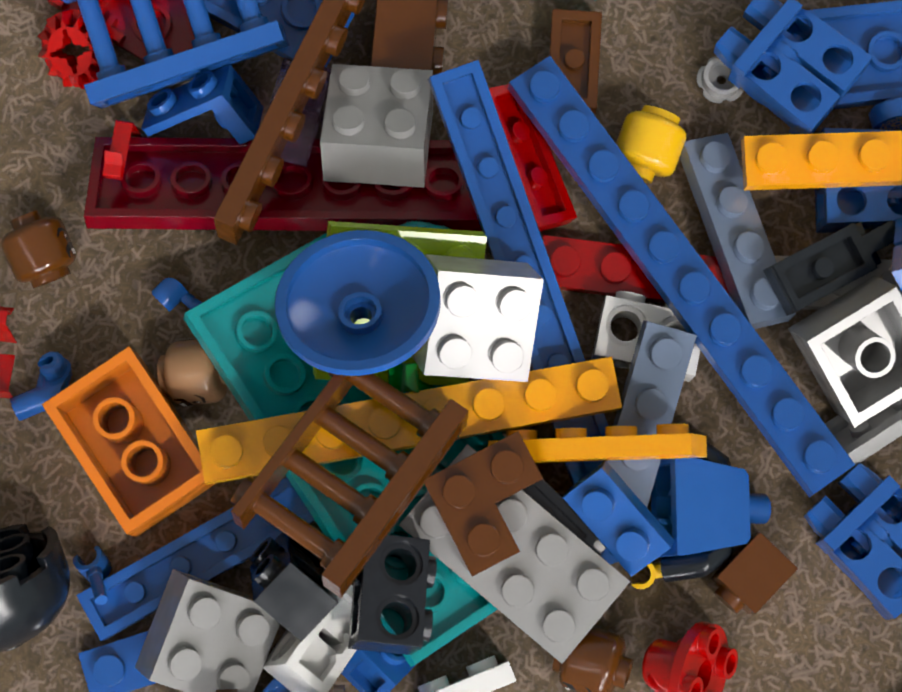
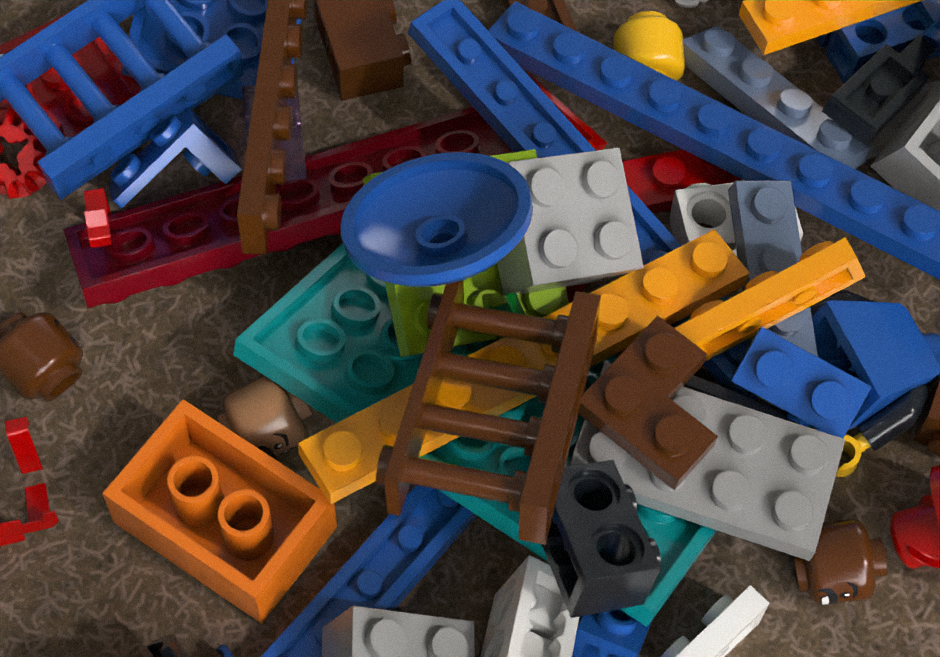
camera: 25 degrees left, 20 degrees down
(53, 378) = (93, 512): blue arm -> none
(172, 292) = (205, 352): blue hand -> none
(290, 585) = (472, 582): black brick -> none
(377, 125) = (368, 111): light grey brick -> none

